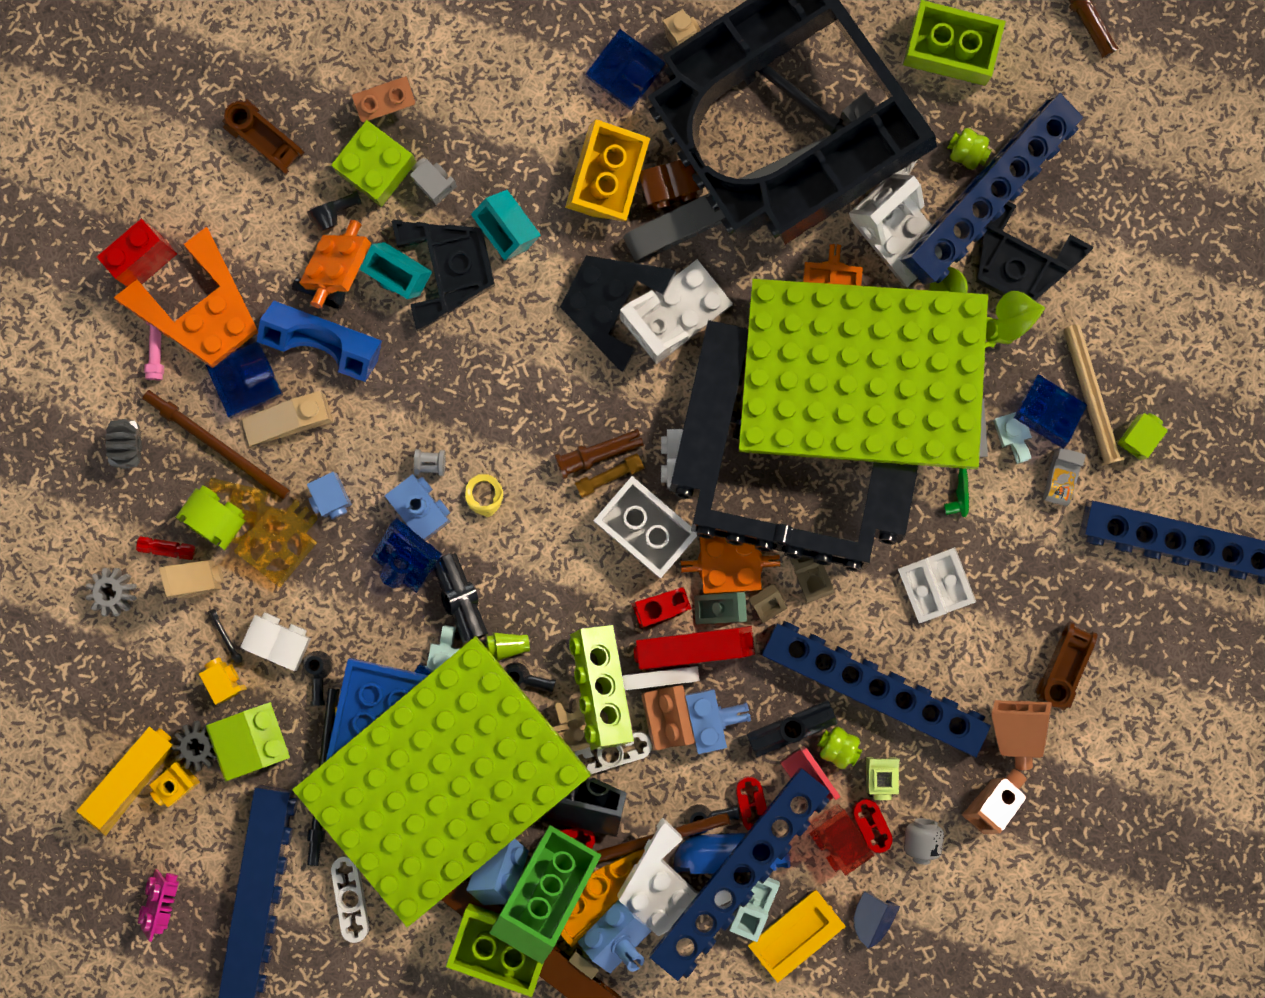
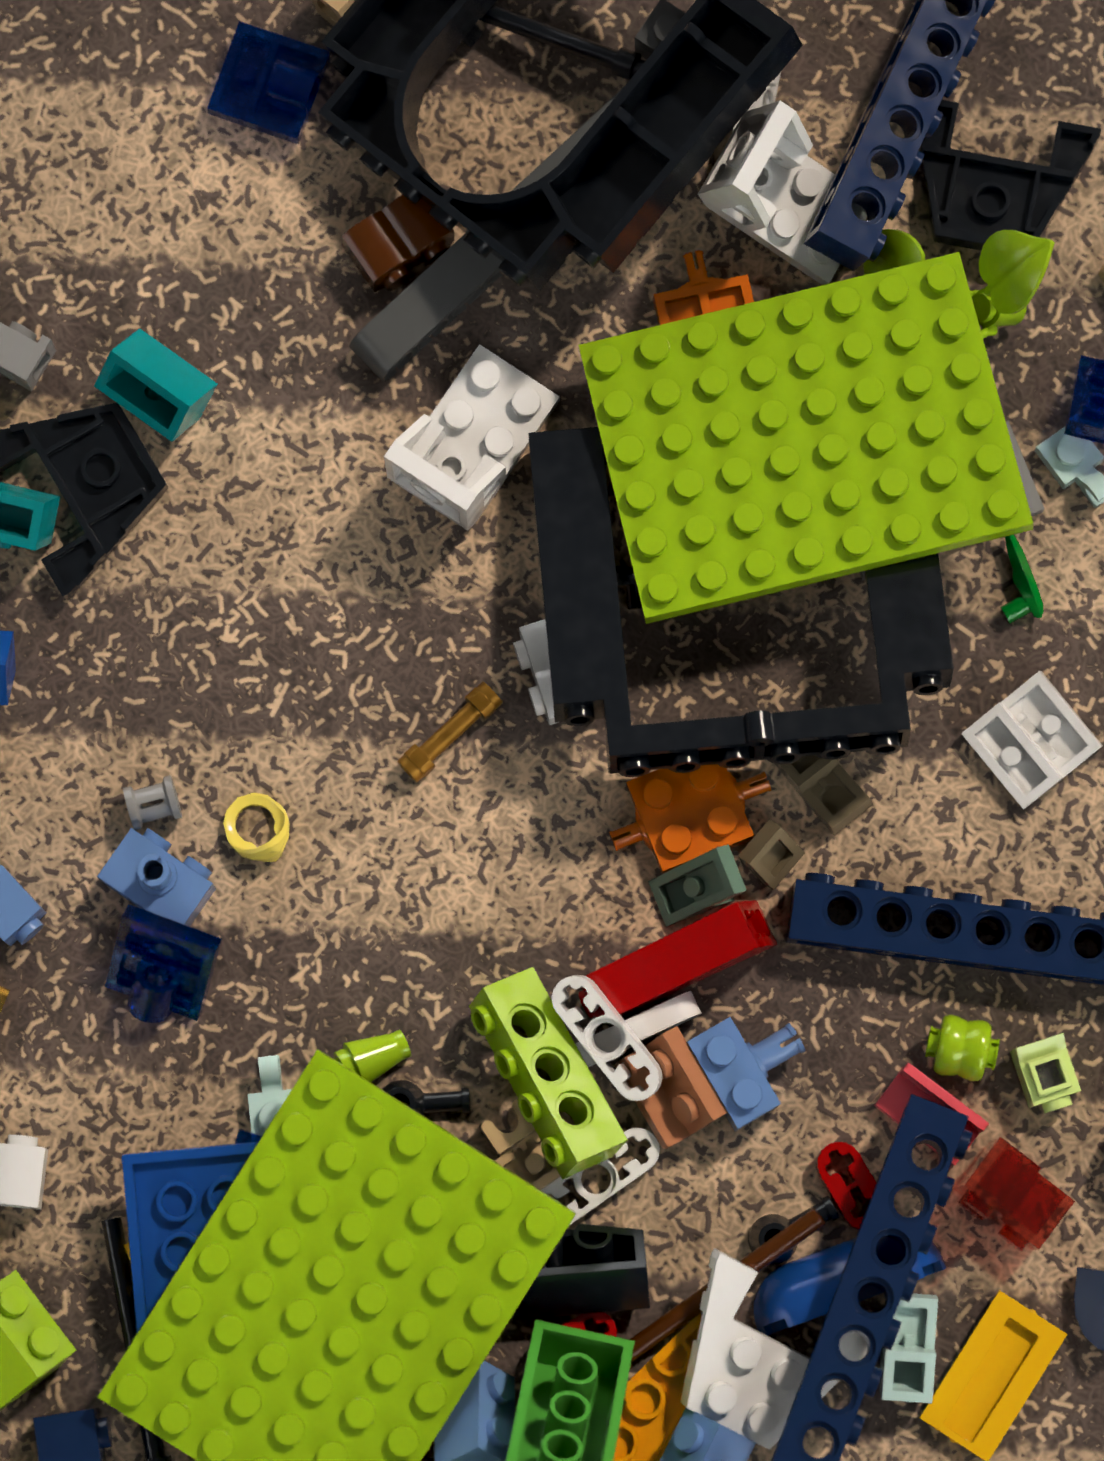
camera: 20 degrees left, 5 degrees down
(317, 676) = (77, 1206): black bar -> none
(459, 598) = (270, 1003): black piece -> none
(585, 457) = (402, 713): reddish brown pin -> none
(599, 294) = (342, 448): black wing -> none
(607, 171) = (292, 250): yellow slope -> none
(645, 527) = (535, 794): white brick -> none
(657, 696) = (586, 1037): none -> white beam
(661, 607) = (600, 915): red leg -> none
(810, 721) = (900, 1022): black piece -> none
(878, 822) = (1064, 1149): red beam -> none
(969, 148) = (855, 37): lime piece -> none

